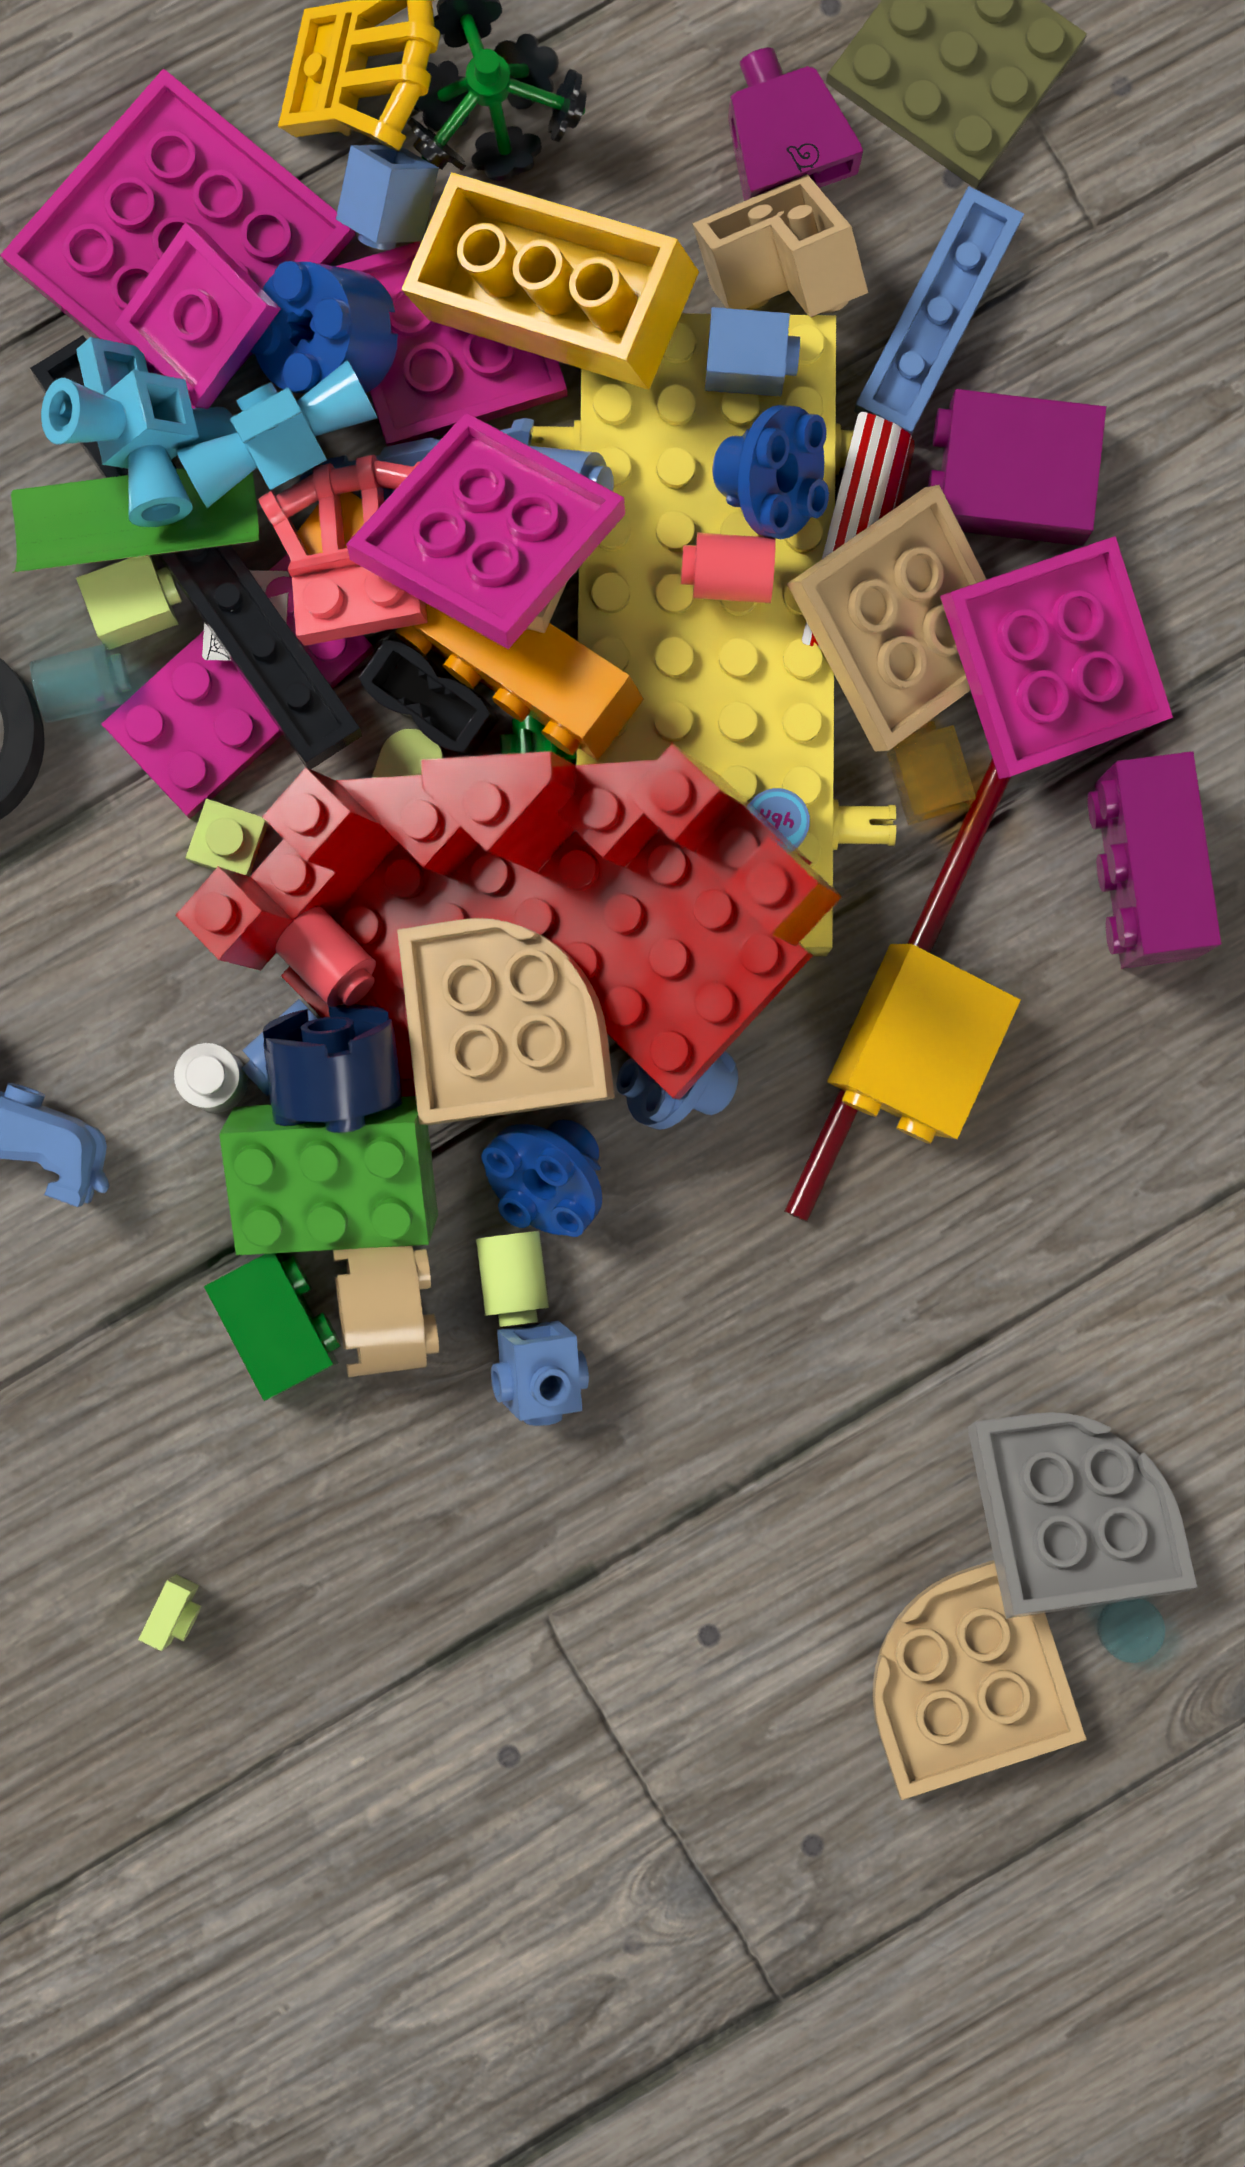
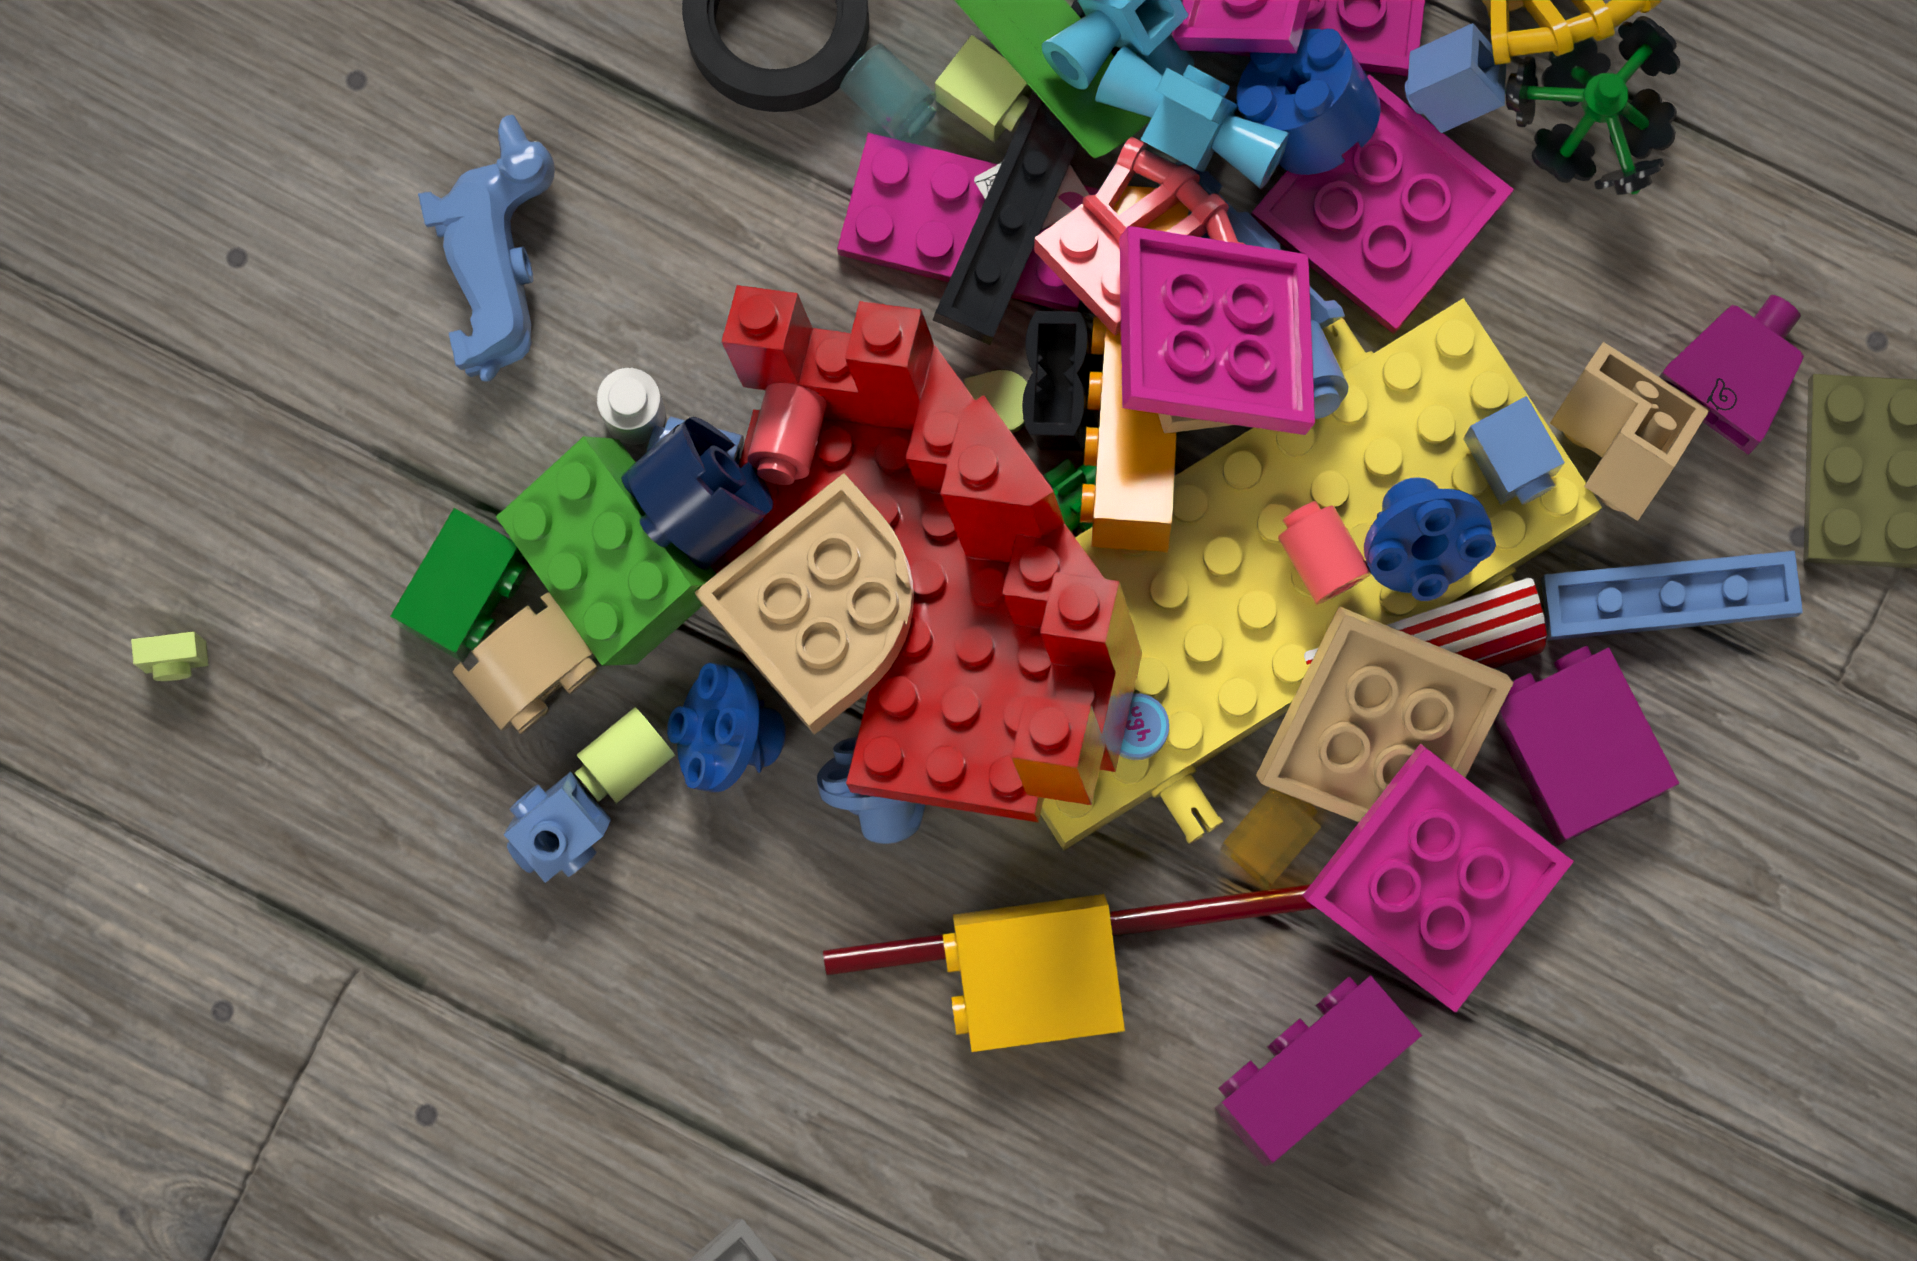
camera: 65 degrees right, 5 degrees down
(226, 838) = (836, 292): yellowish green plate -> none
(551, 280) = (1466, 254): yellow brick -> none

